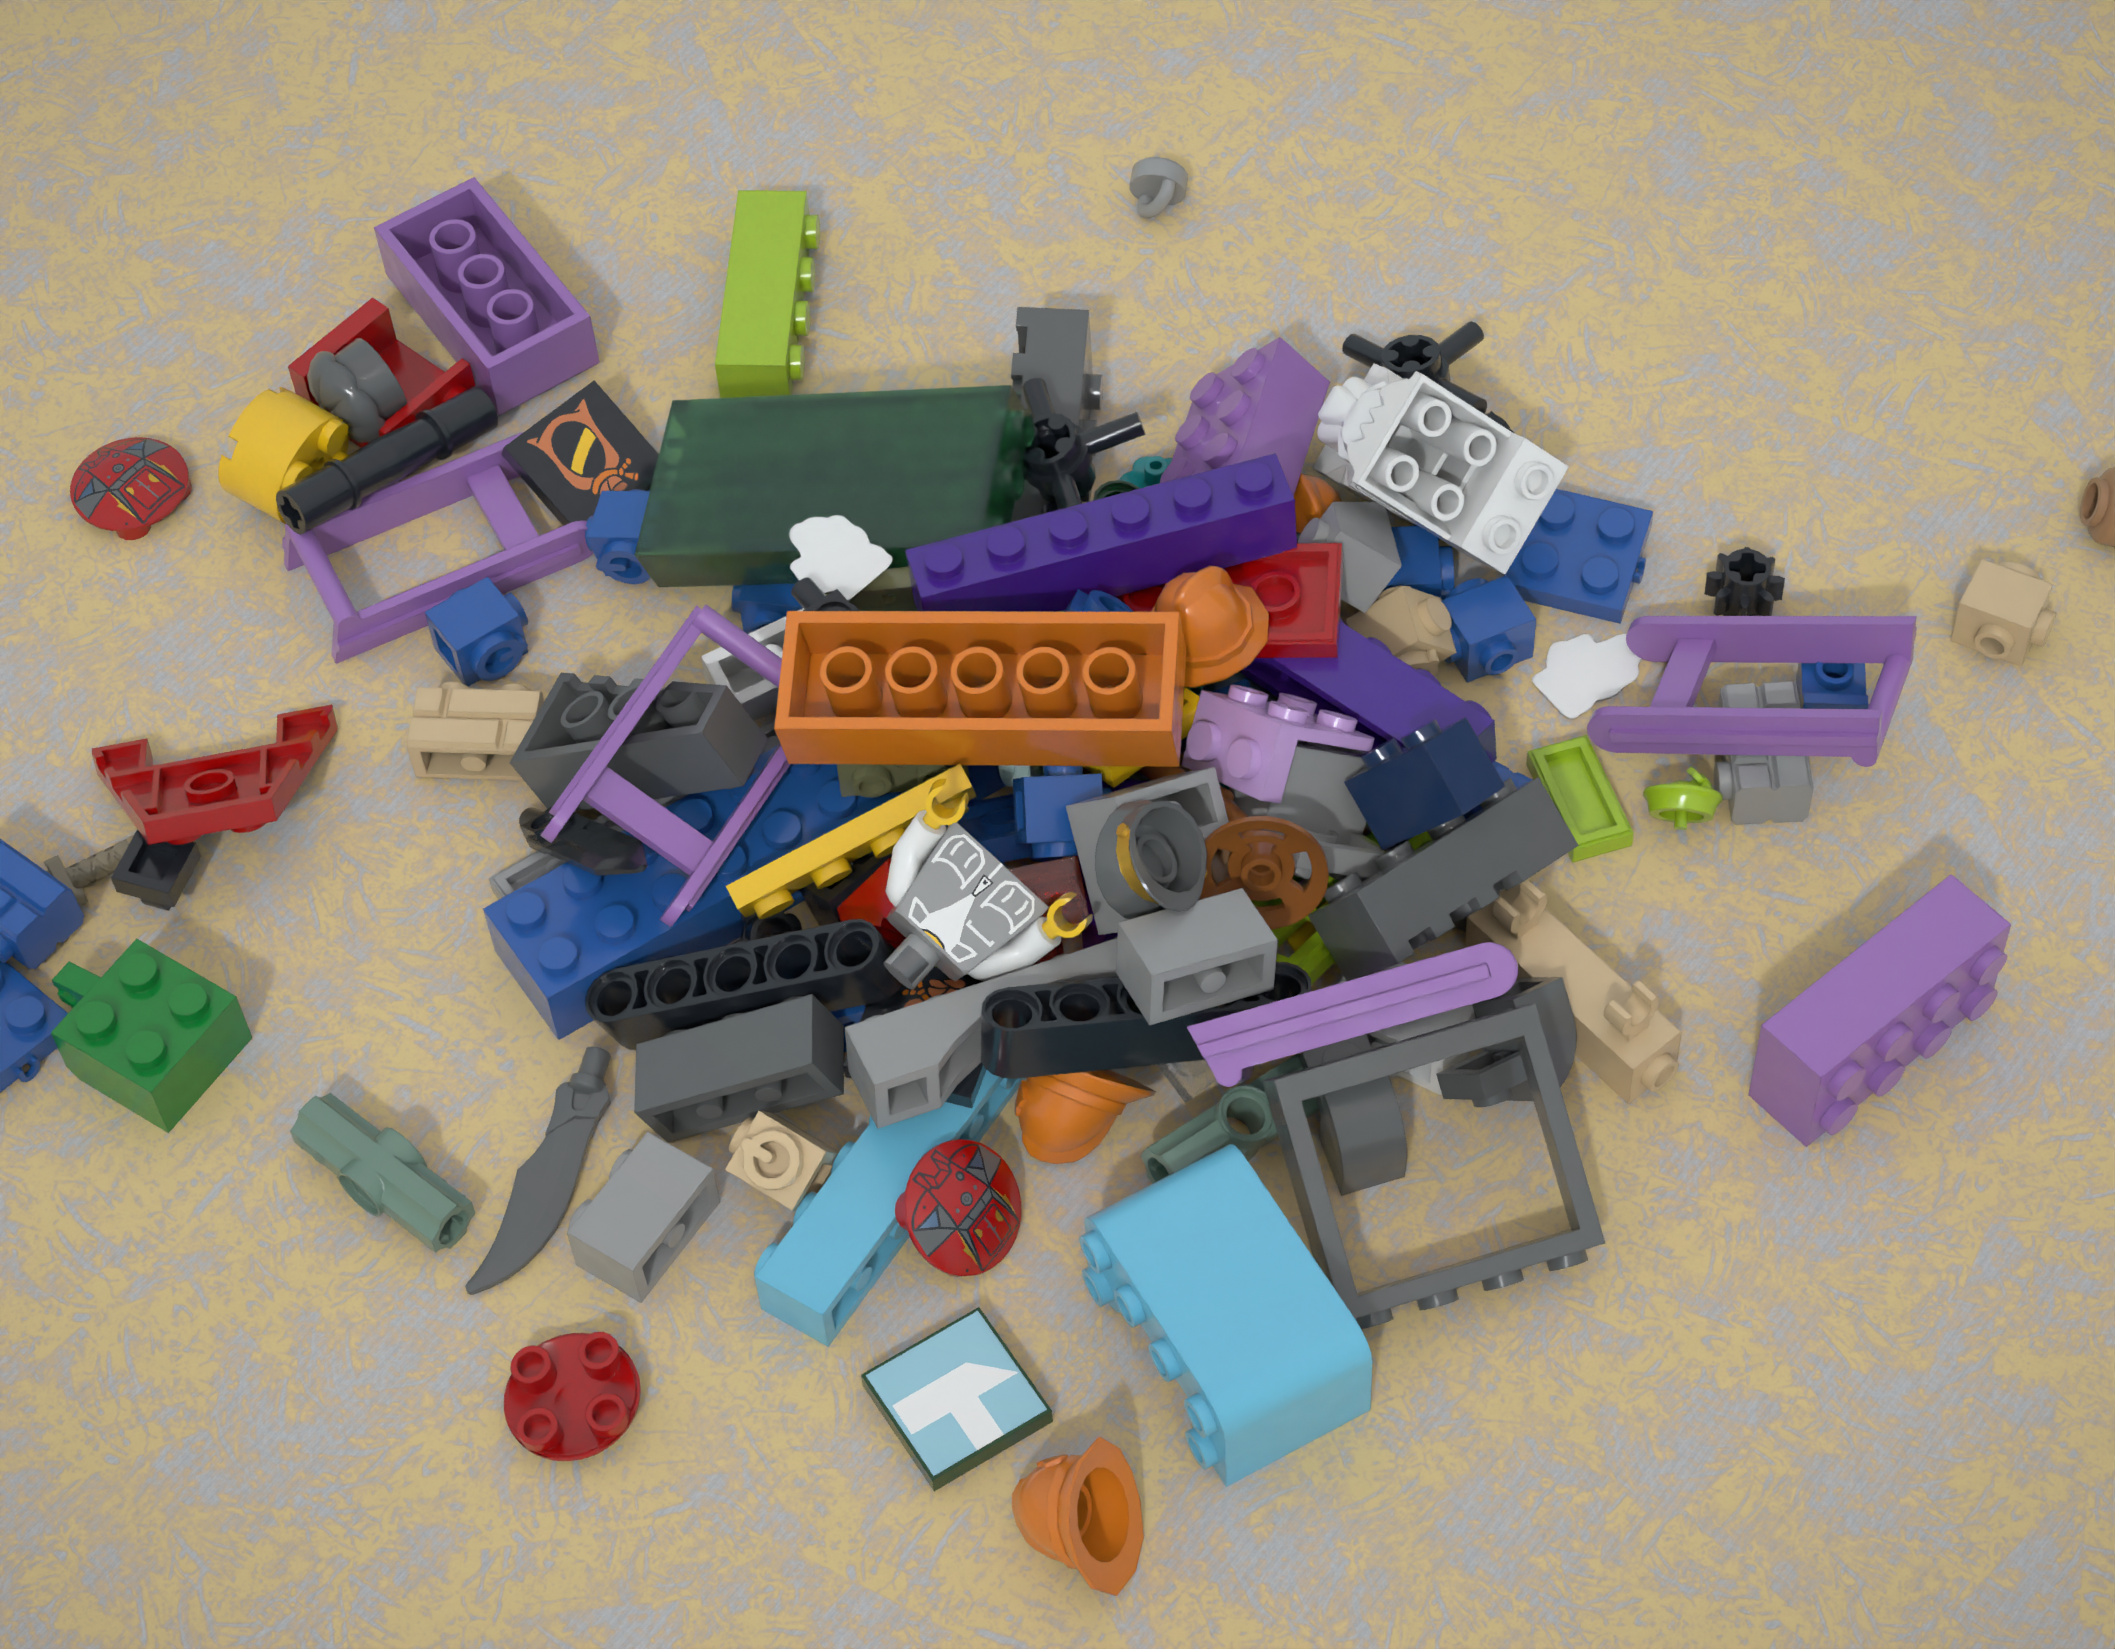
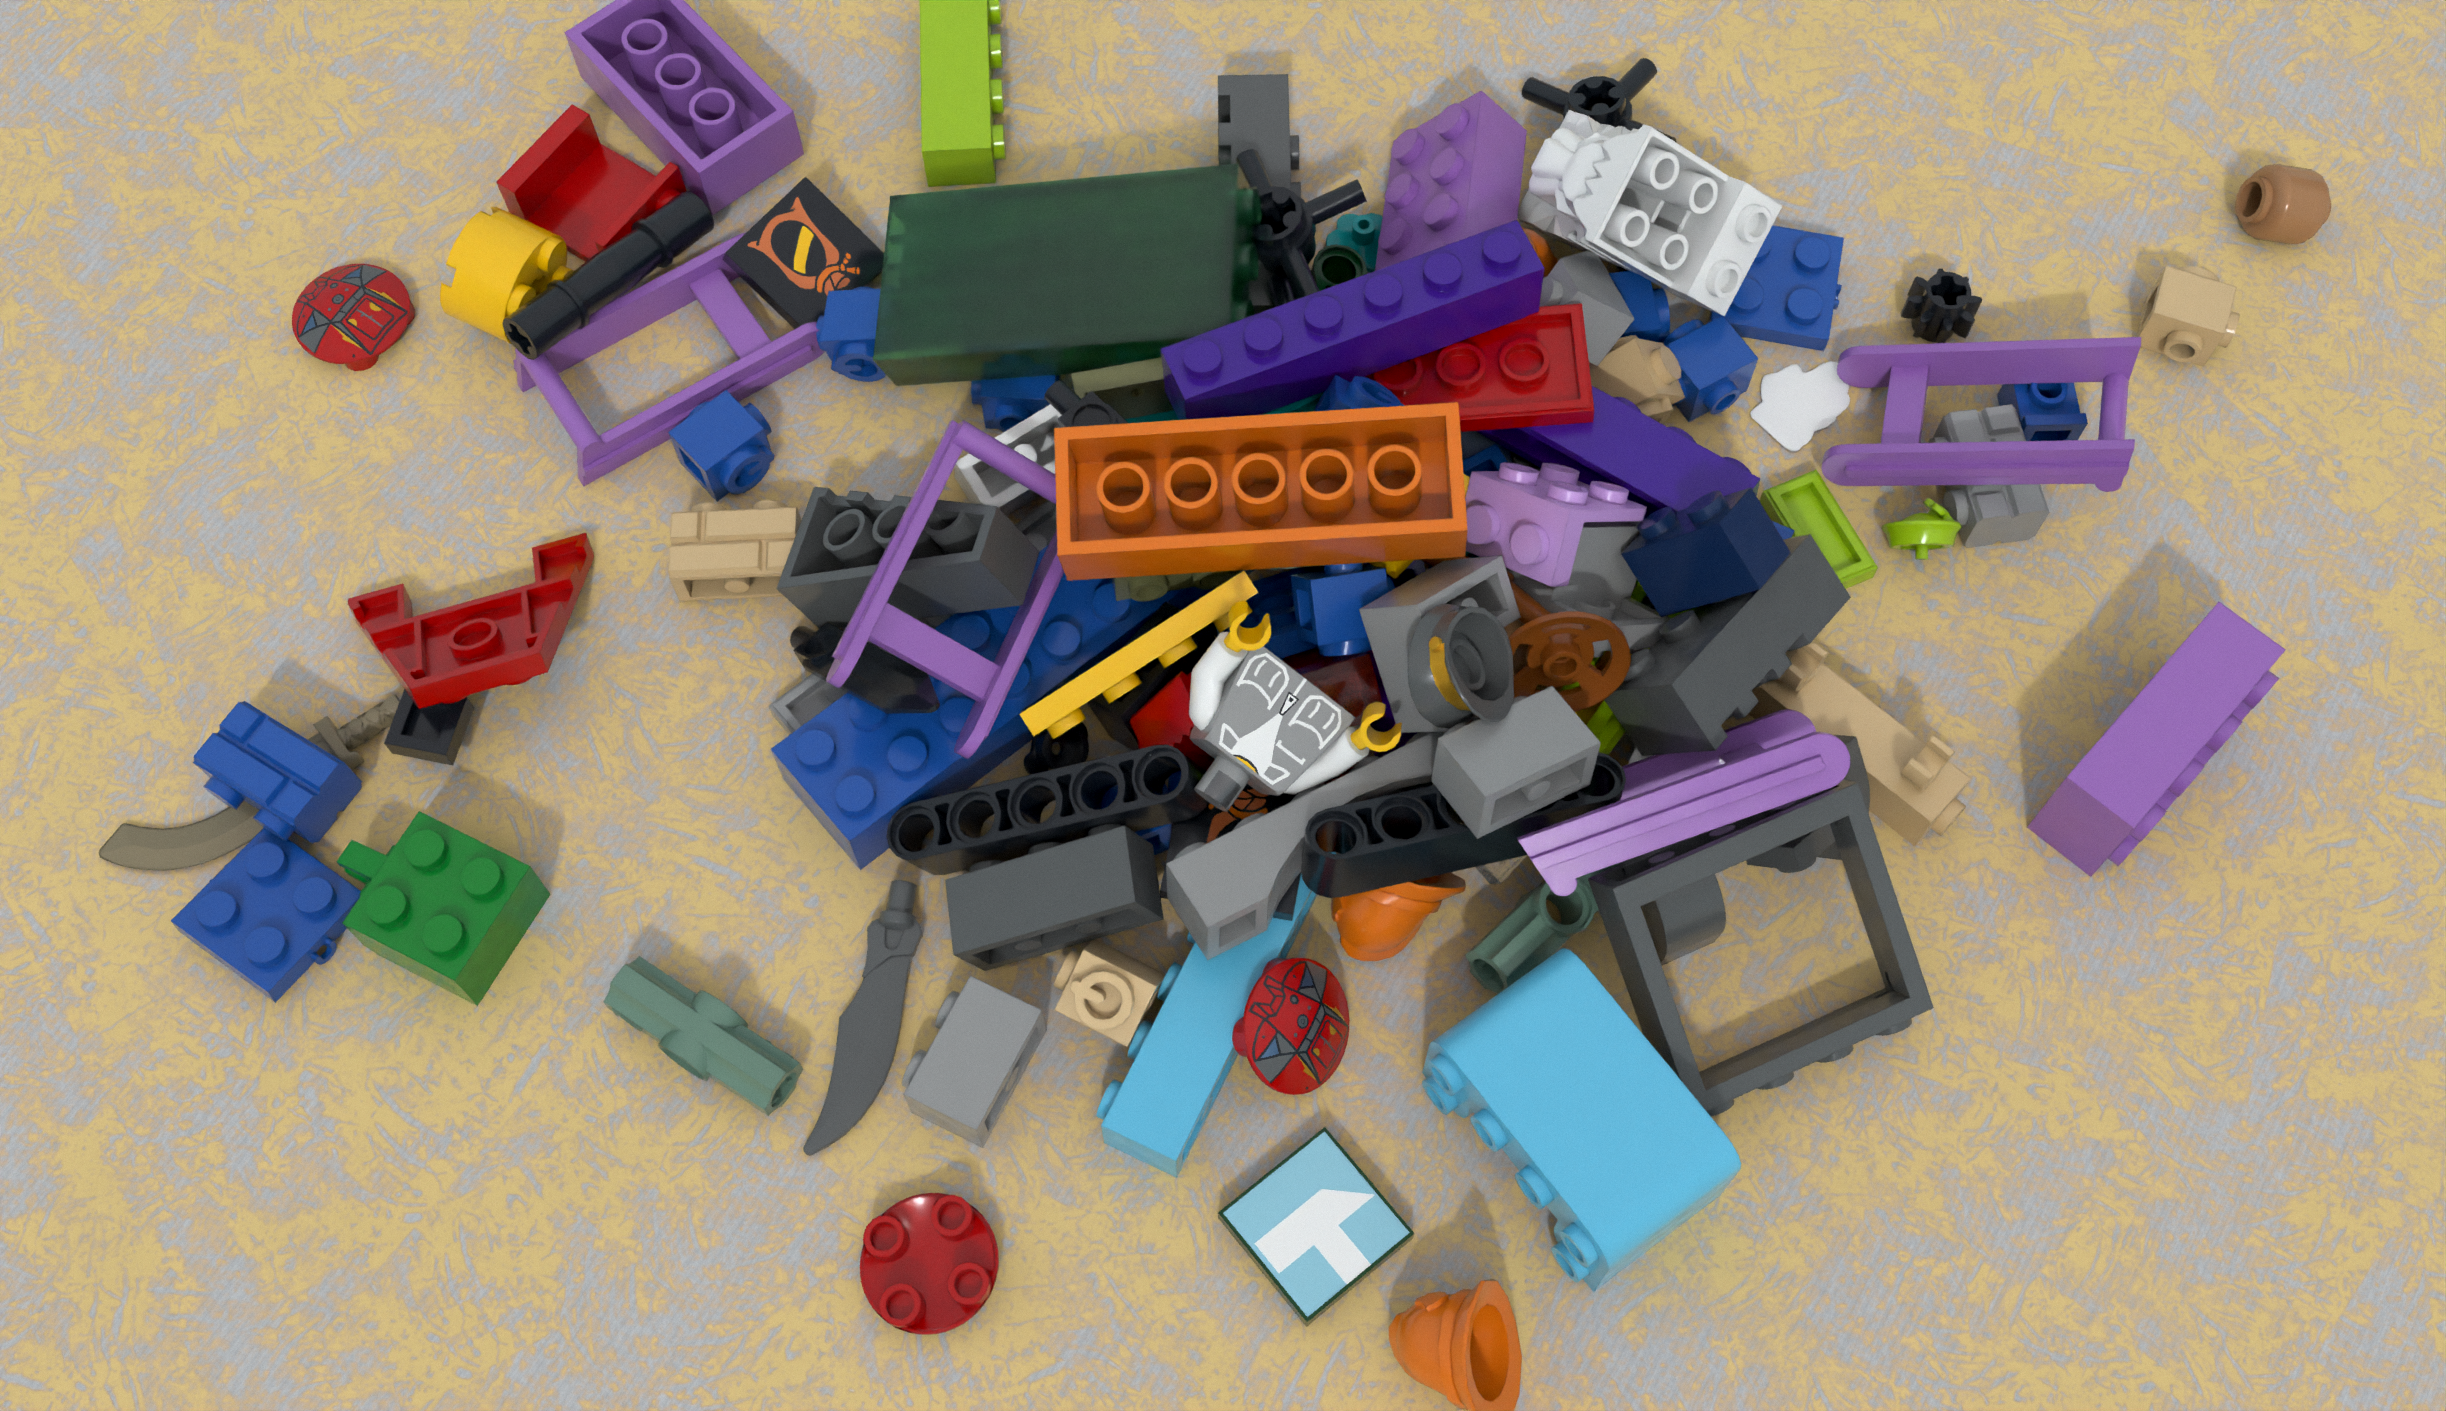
camera: 10 degrees left, 10 degrees up
(356, 388) = (568, 202): dark grey piece -> none
(836, 555) = (1082, 352): white sticker -> none
(1220, 623) = (1487, 396): orange piece -> none

